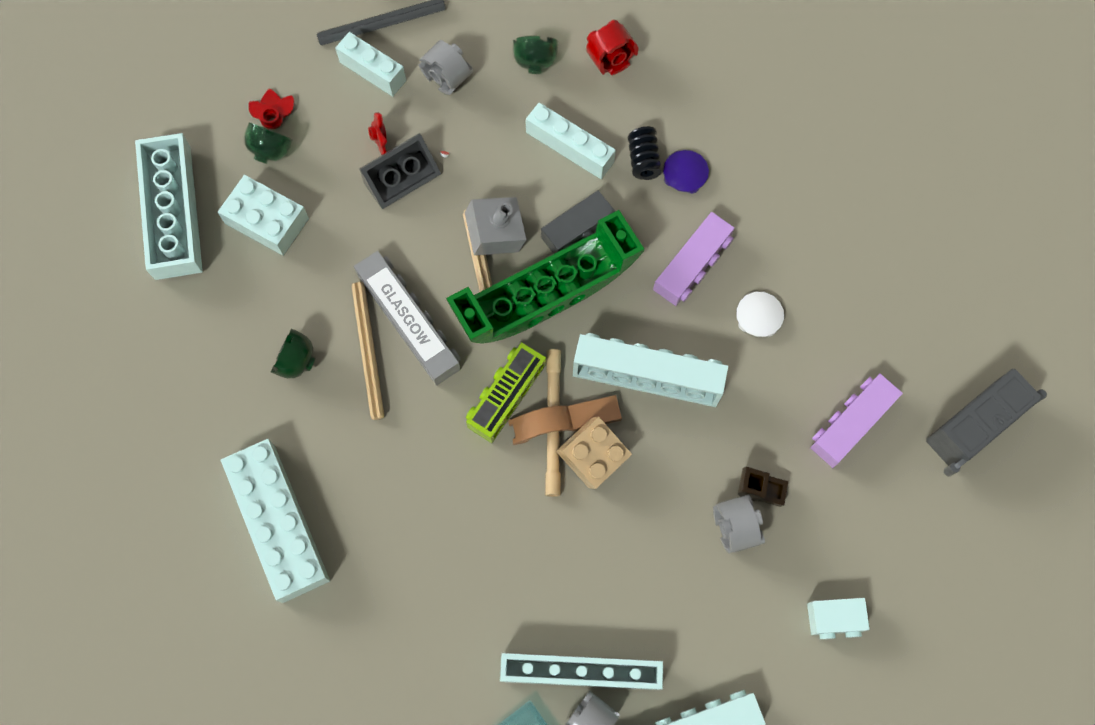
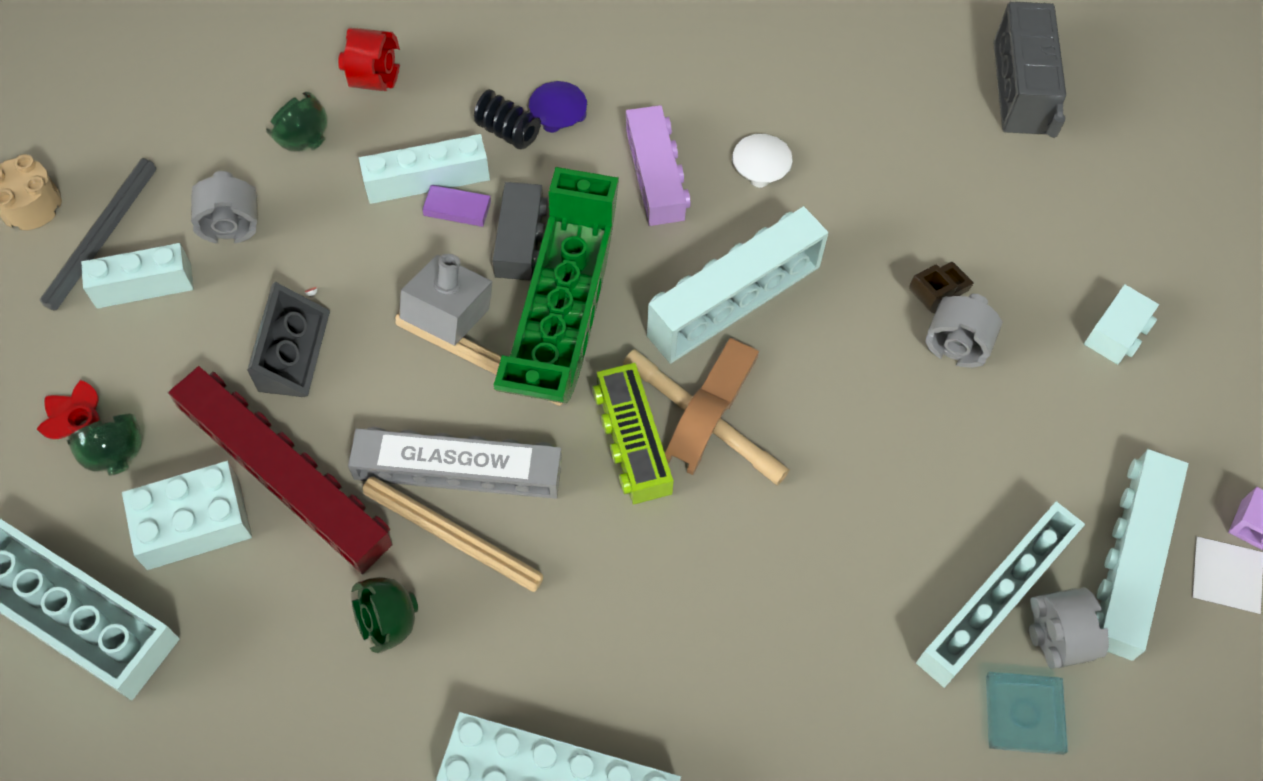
camera: 50 degrees left, 10 degrees down
(327, 234) = (281, 469): none -> dark red brick
(378, 132) = (225, 329): red plate -> none
(566, 178) = (457, 205): none -> medium lavender tile
(594, 452) = (776, 399): tan brick -> none
(856, 420) = (939, 164): lavender brick -> none

